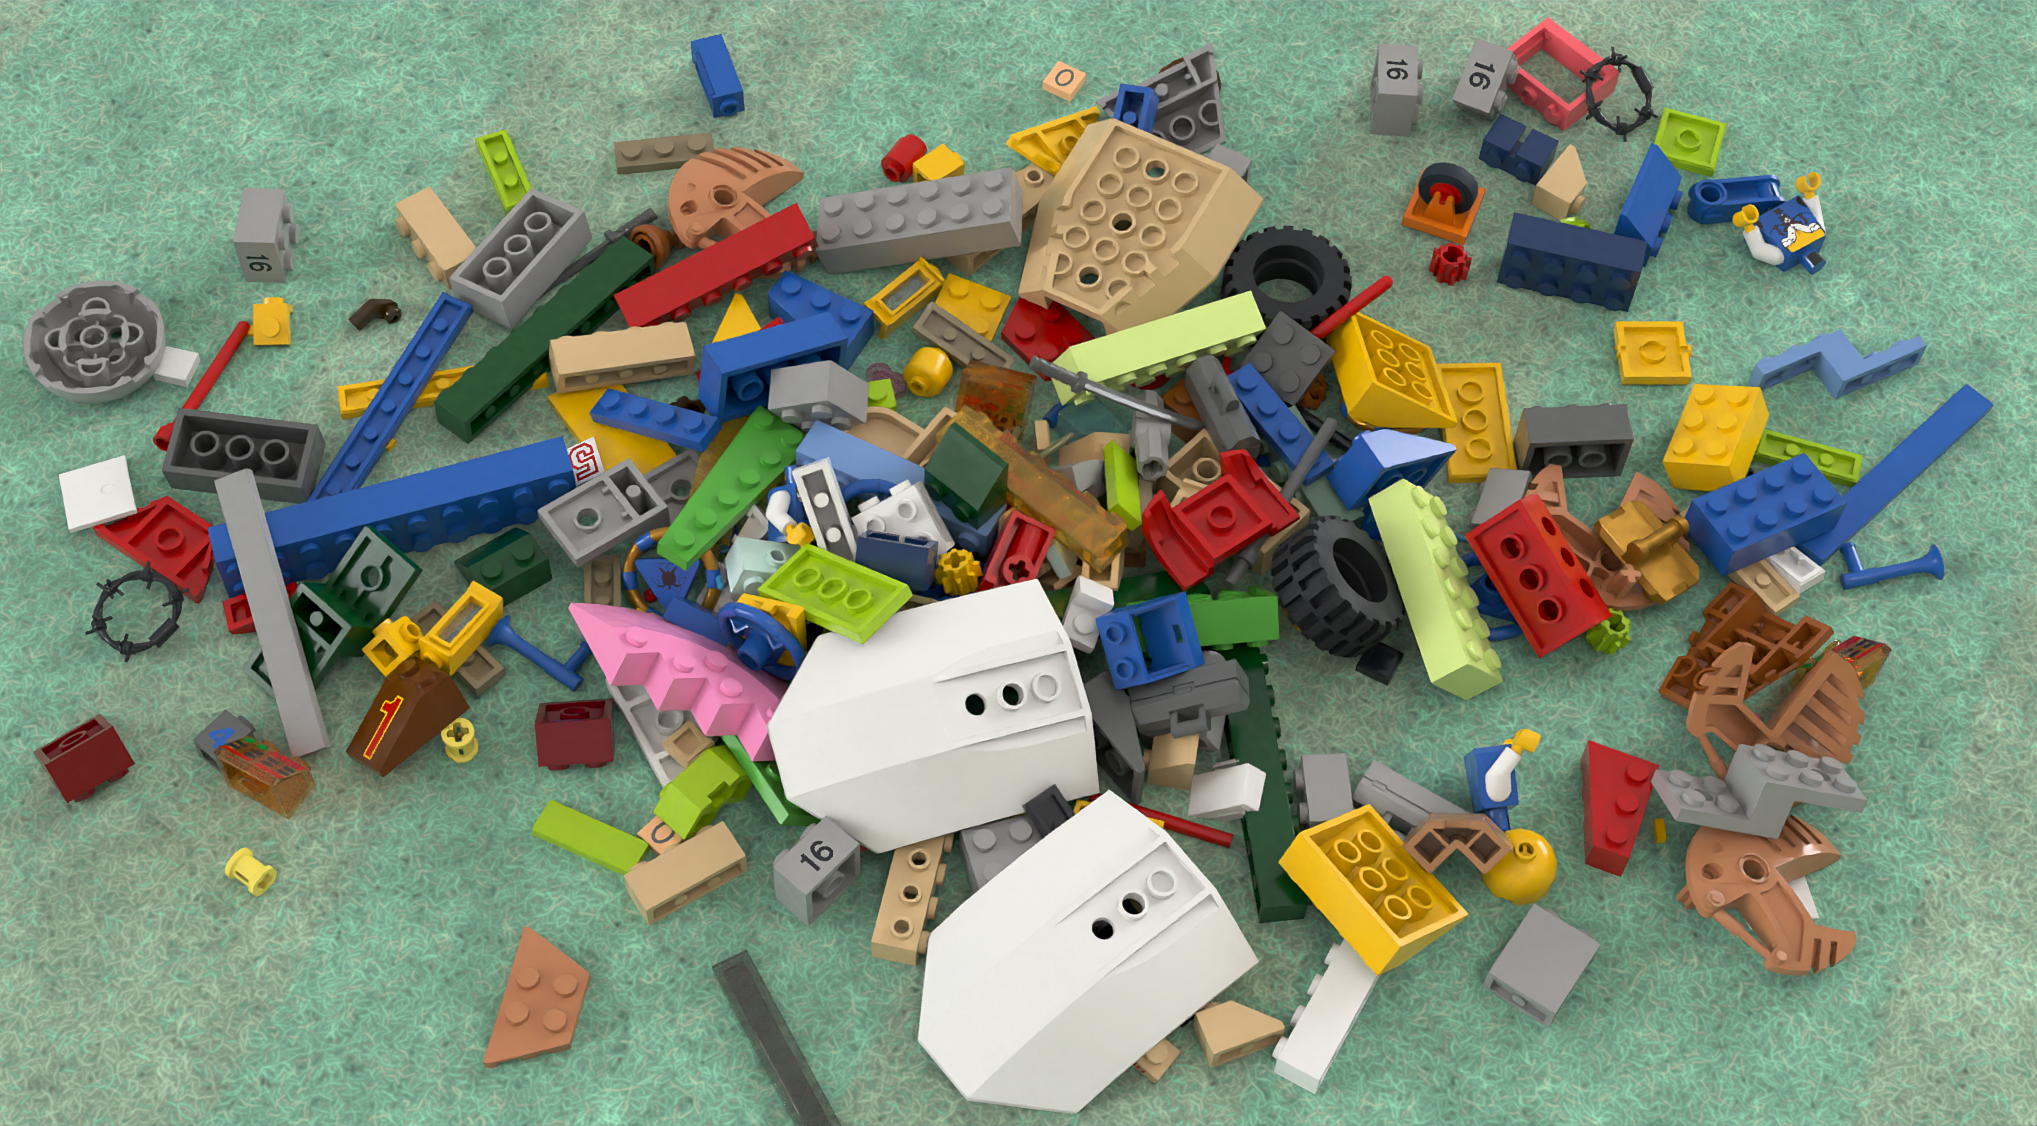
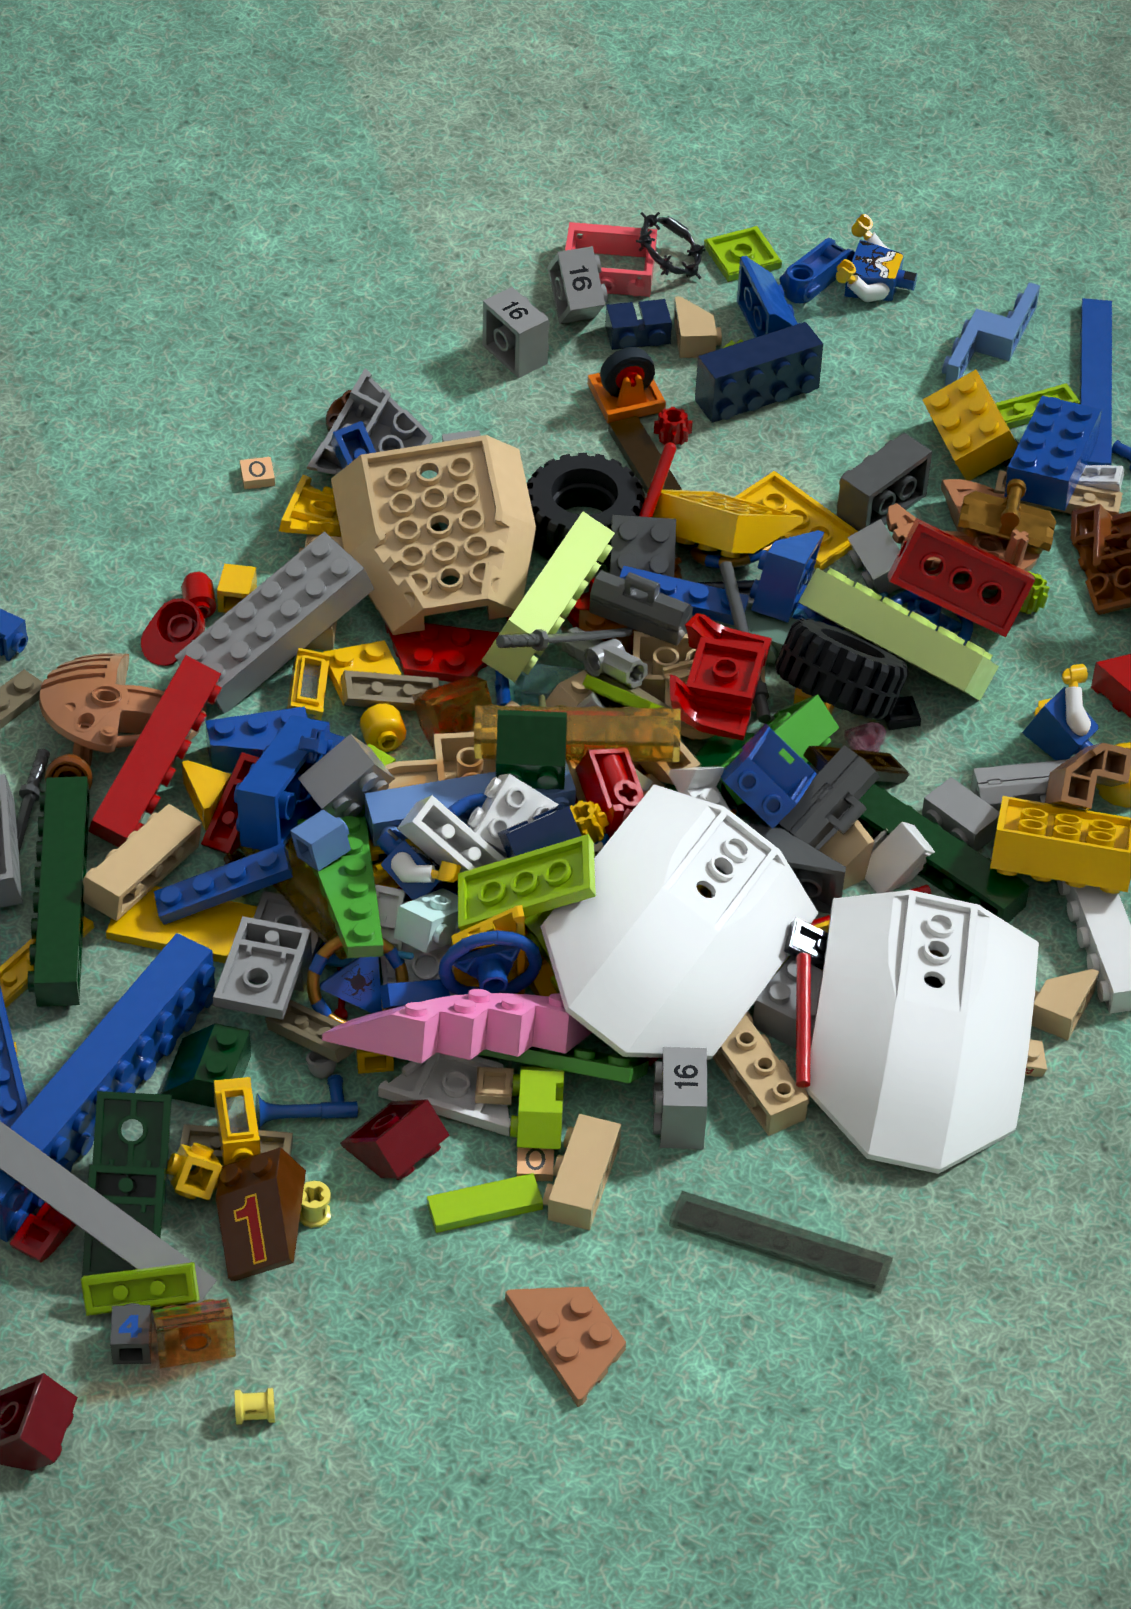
camera: 40 degrees left, 10 degrees down
(264, 711) = (143, 1286): none -> lime tile
(740, 435) = (321, 840): none -> medium blue brick
(820, 350) = (319, 744): none -> blue hinge
(851, 173) = (171, 631): none -> red cap
(973, 879) = (803, 1019): none -> red bar
(1275, 684) = (883, 763): none -> dark brown tile
(1322, 667) = (866, 737): none -> clear pink tile
(1403, 268) = (639, 451): none -> dark brown tile
(1652, 353) = (866, 402): yellow plate -> none

